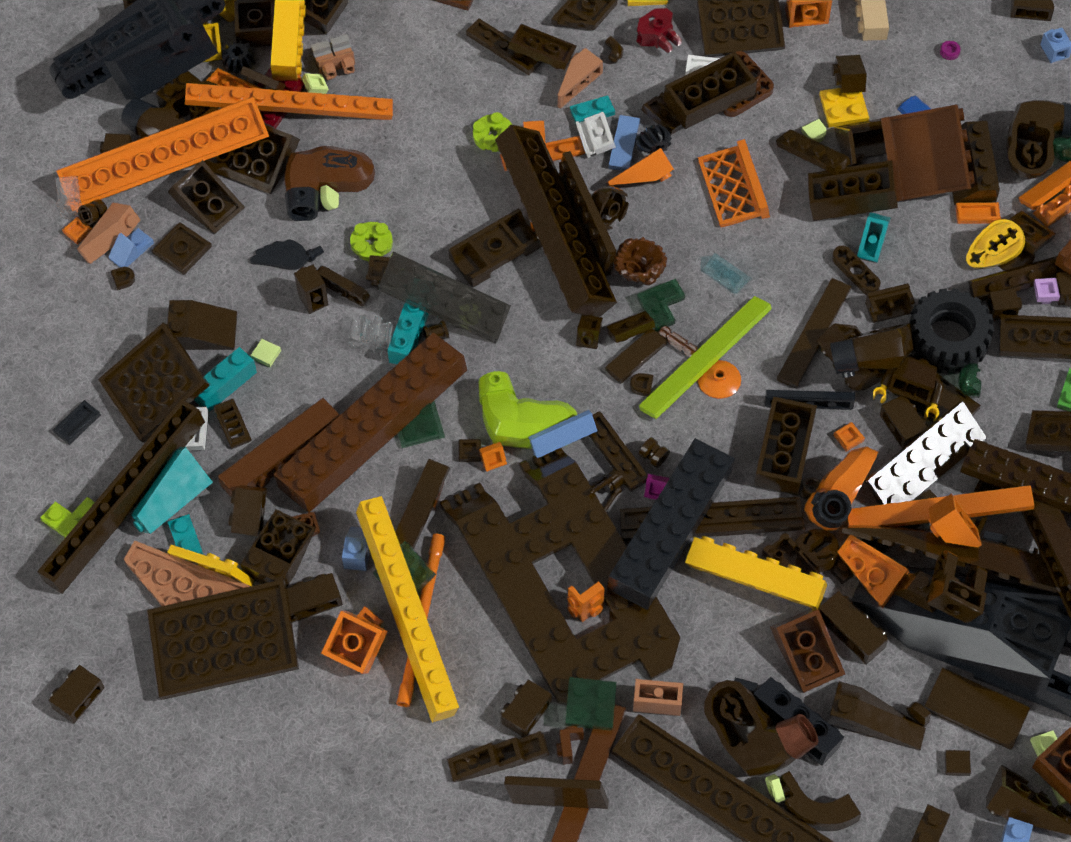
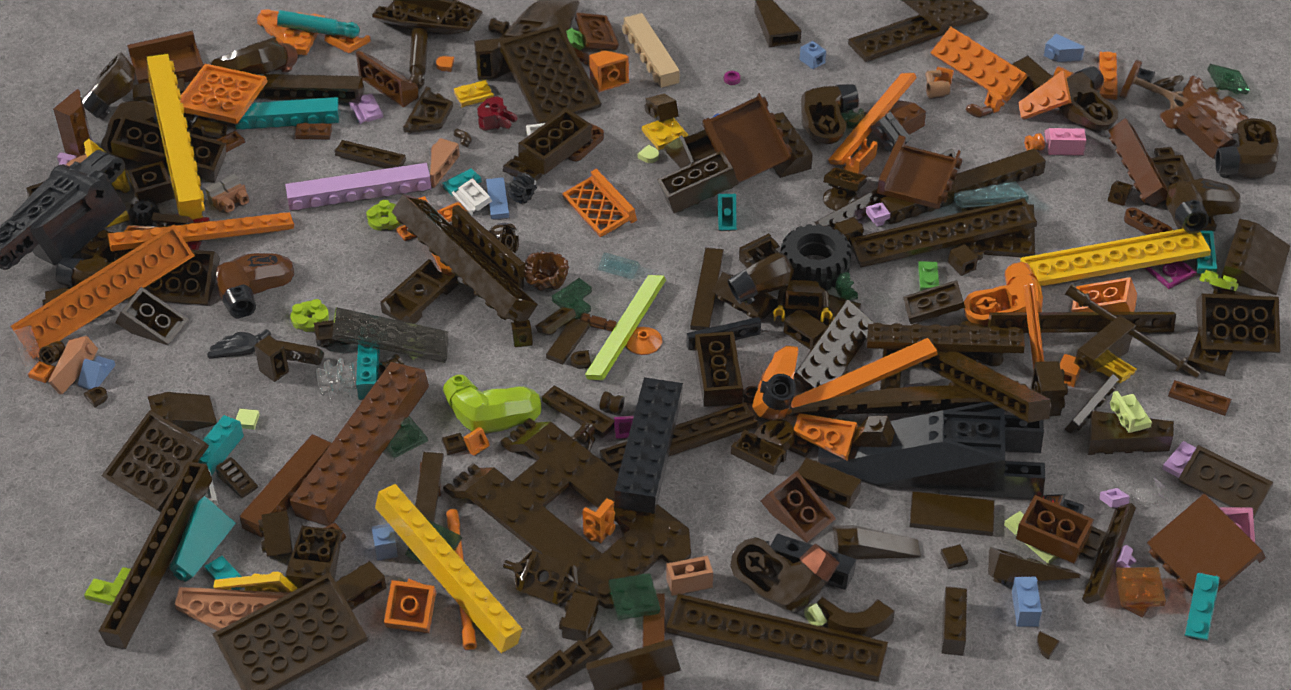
camera: 20 degrees left, 15 degrees down
(76, 422) = (92, 514): black tile -> none
(181, 248) = (142, 362): dark brown tile -> none
(315, 83) = (216, 214): yellowish green tile -> none
(329, 198) = (261, 293): yellowish green tile -> none
(476, 86) = (358, 186): none -> lavender brick
(522, 657) = (558, 587): none -> dark brown plate
(542, 47) = (403, 146): dark brown plate -> none
(562, 434) = (530, 406): medium blue tile -> none
(564, 748) = (624, 632): reddish brown bracket -> none
(649, 169) = (525, 209): orange slope -> none
(756, 573) = (733, 462): yellow brick -> none
(813, 151) = (654, 164): dark brown plate -> none
(849, 436) = (765, 352): orange tile -> none
(854, 261) = (711, 234): dark brown beam -> none
(919, 713) = (908, 528): dark brown tile -> none
(953, 523) = (878, 377): orange slope -> none
(953, 597) = (905, 422): dark brown brick -> none
(977, 213) = (801, 178): orange tile -> none
(992, 233) = (820, 183): yellow piece -> none

